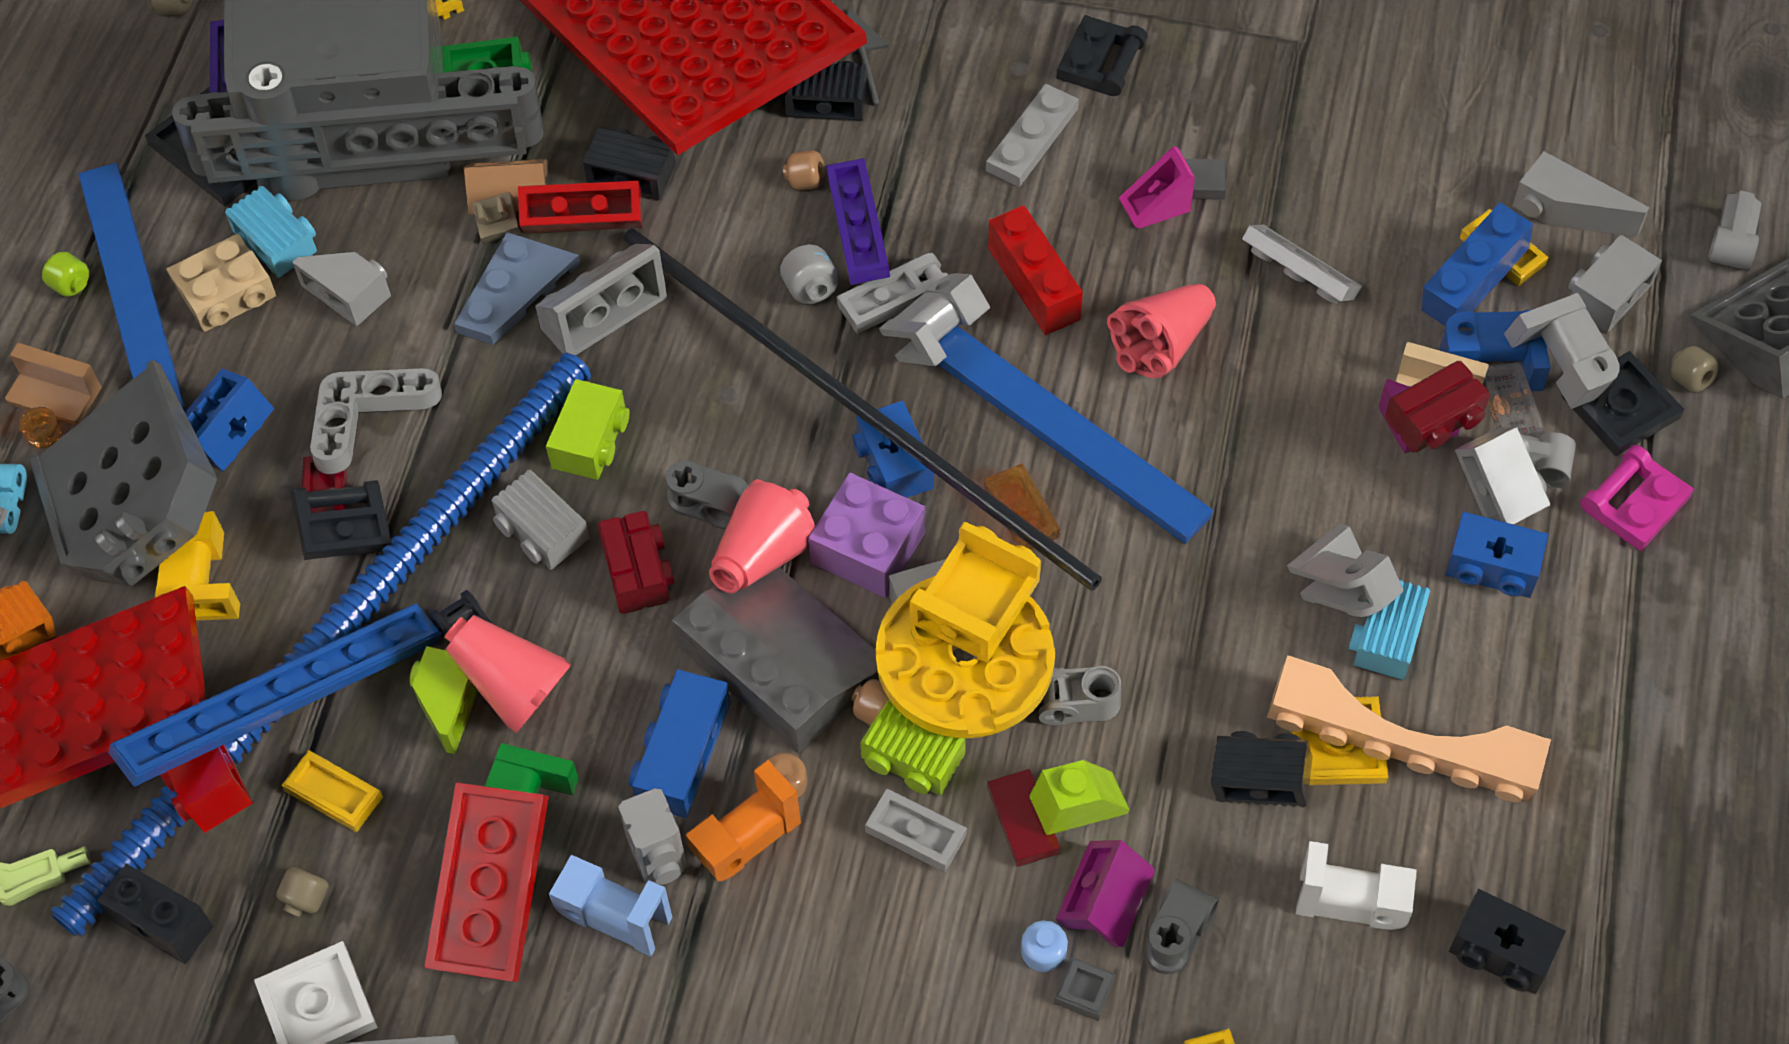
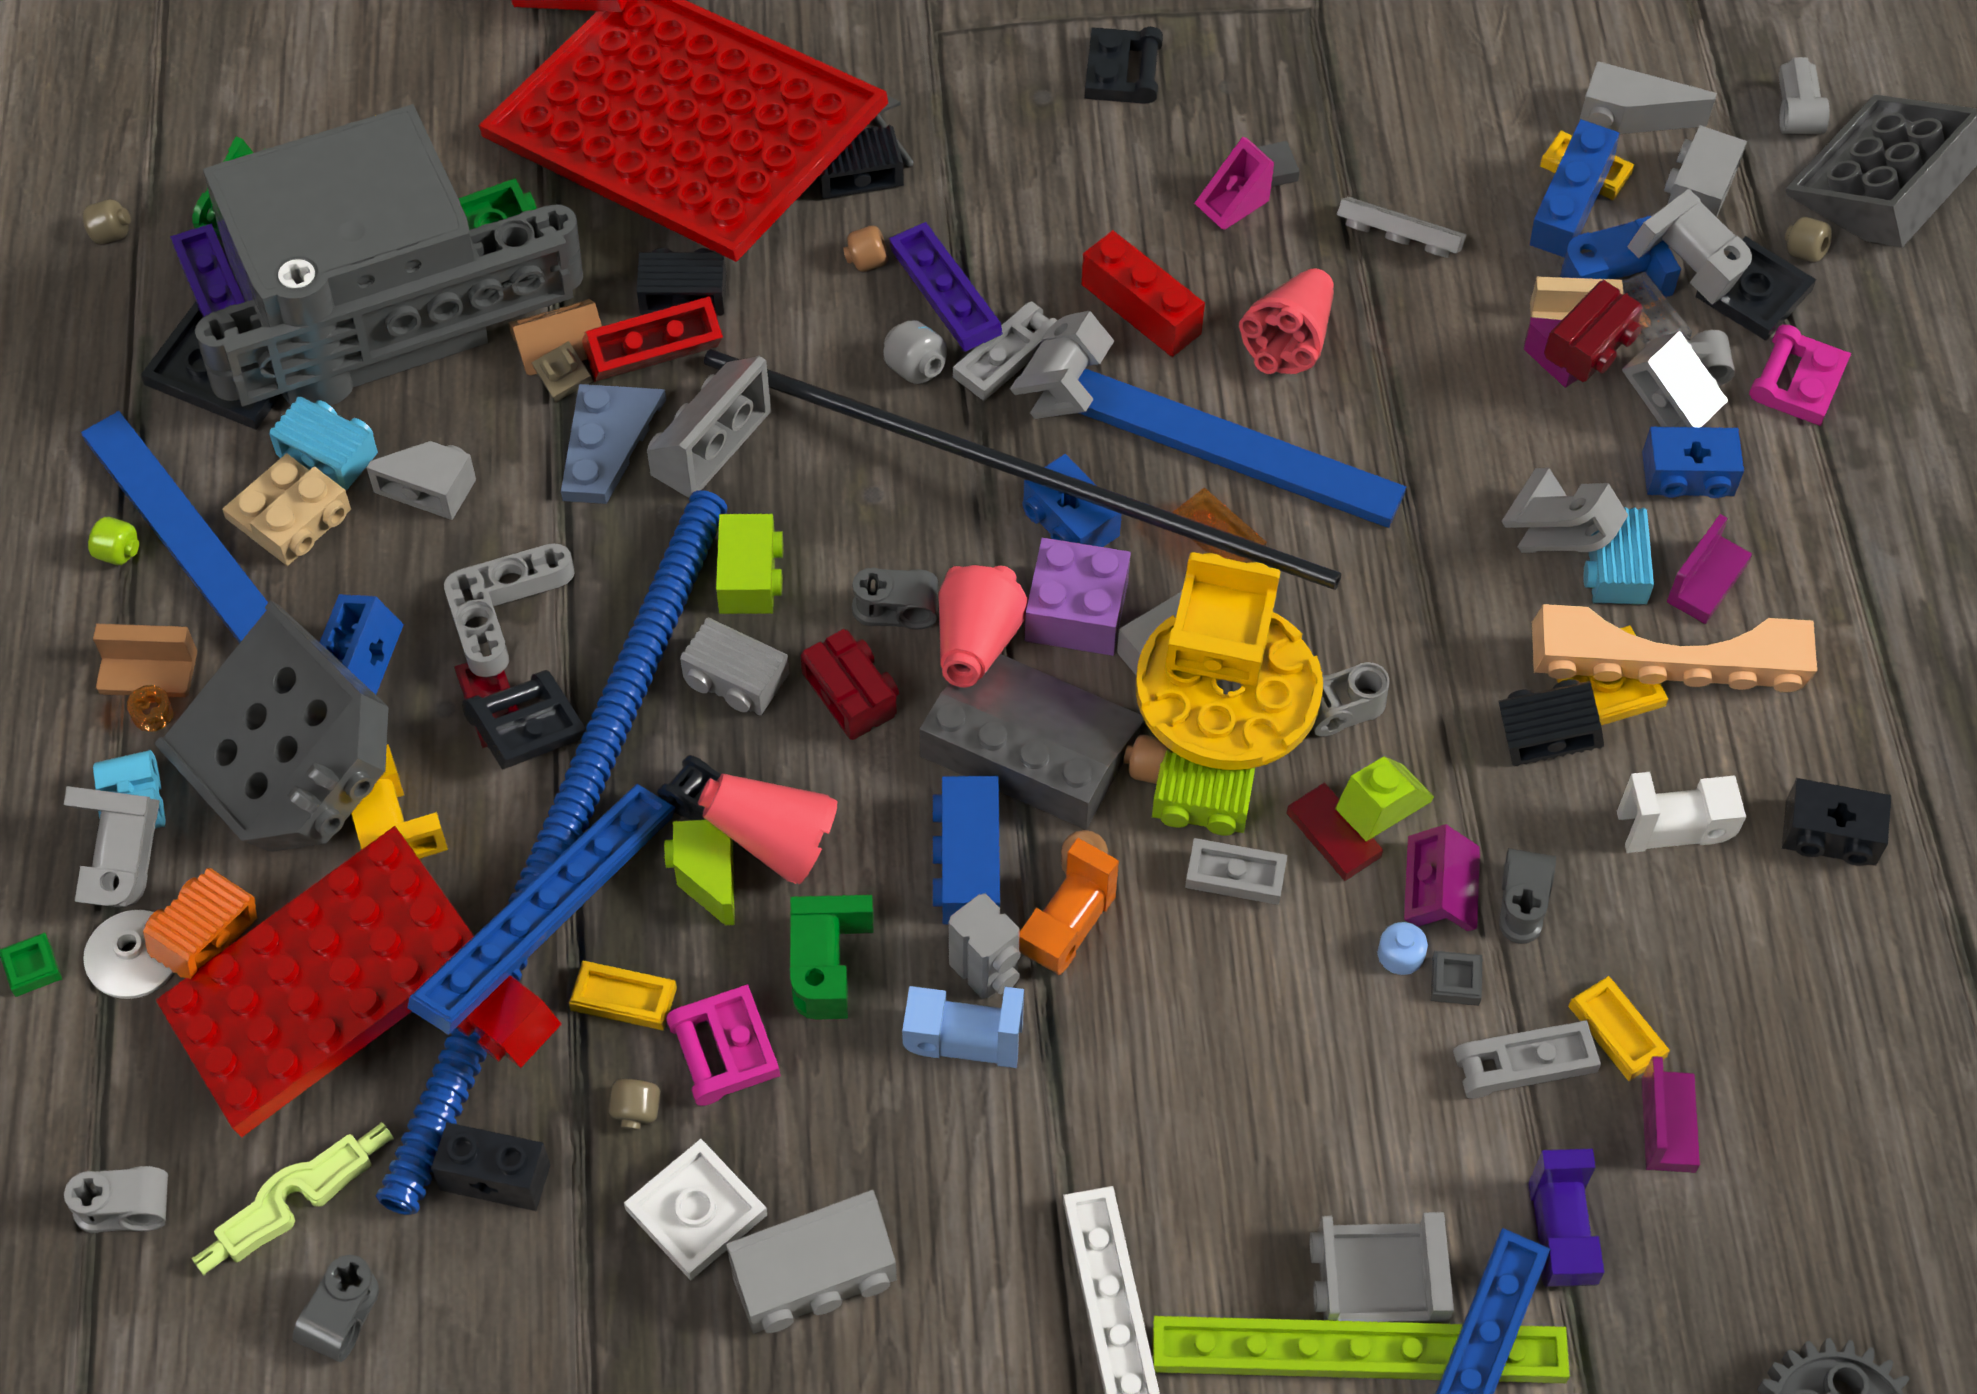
camera: 20 degrees left, 0 degrees up
(413, 860) = (738, 1037): none -> dark pink plate
(486, 882) = (832, 1036): red plate -> none
(1032, 135) = (1084, 160): light grey plate -> none
(1472, 665) = (1708, 573): none -> magenta panel

